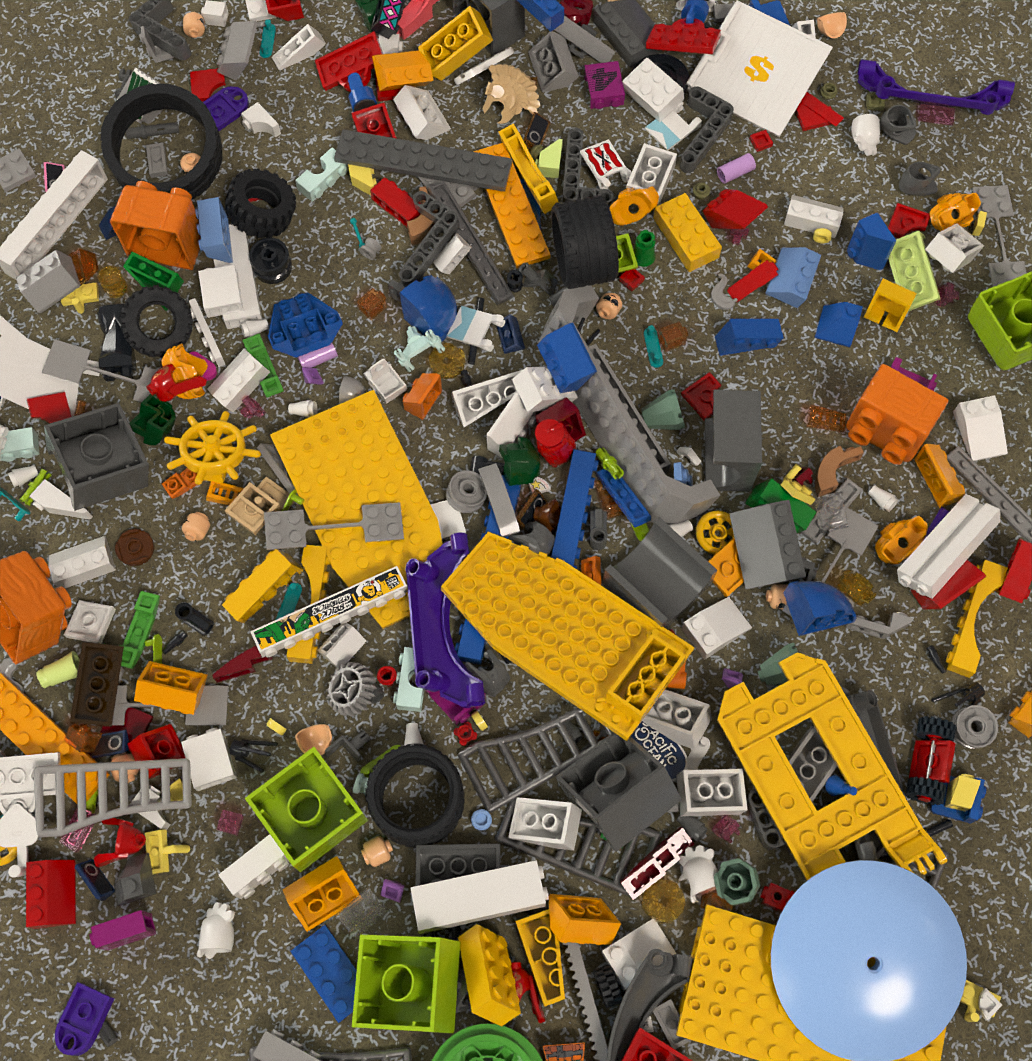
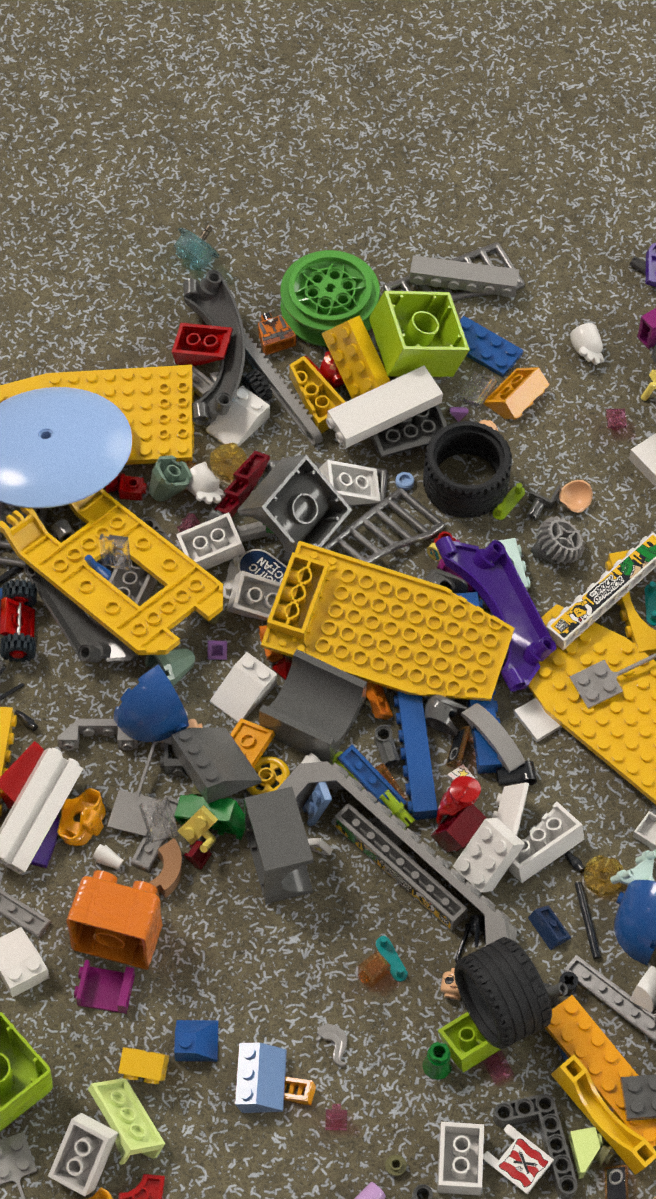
camera: 160 degrees right, 10 degrees down
(242, 748) = (636, 476): black plant -> none
(254, 868) = (578, 390): white brick -> none
(276, 727) = (613, 500): light yellow tile -> none
(306, 809) = (554, 431): lime brick -> none
(342, 645) = (586, 573): white brick -> none
(360, 784) = (517, 476): light aqua wheel -> none
(383, 673) = (533, 559): red cone -> none
(412, 735) = (488, 521): white cone -> none
(423, 394) = (613, 825): orange slope -> none
(464, 501) = (530, 731): light grey wheel -> none
(472, 325) = (592, 919): white flag -> none
(521, 462) = (488, 774): dark green brick -> none
(548, 515) = (440, 743): reddish brown piece -> none
(566, 358) = (477, 871): blue slope -> none
(582, 920) = (294, 420): light orange slope -> none
(631, 279) = (437, 1022): red plate -> none
(644, 198) = (470, 1105): light orange piece -> none
(664, 412) = (355, 877): sand green cone -> none
(687, 232) = (396, 1099): yellow brick -> none
(700, 395) = (322, 916): red tile -> none
(733, 210) = (349, 1128): red slope -> none
(748, 335) = (289, 990): blue wedge -> none
(754, 280) = (303, 1062): red piece -> none
(812, 215) = (255, 1171): white slope -> none
(818, 423) = (185, 934): clear orange slope -> none
(819, 793) = (115, 551): none -> clear plate
(822, 235) = (239, 1143): light yellow tile -> none
(857, 587) = (107, 760): clear yellow plate -> none
(871, 242) = (182, 1129): blue slope -> none
(939, 475) = (51, 889): light orange slope -> none
(947, 294) = (80, 1105): clear pink tile -> none

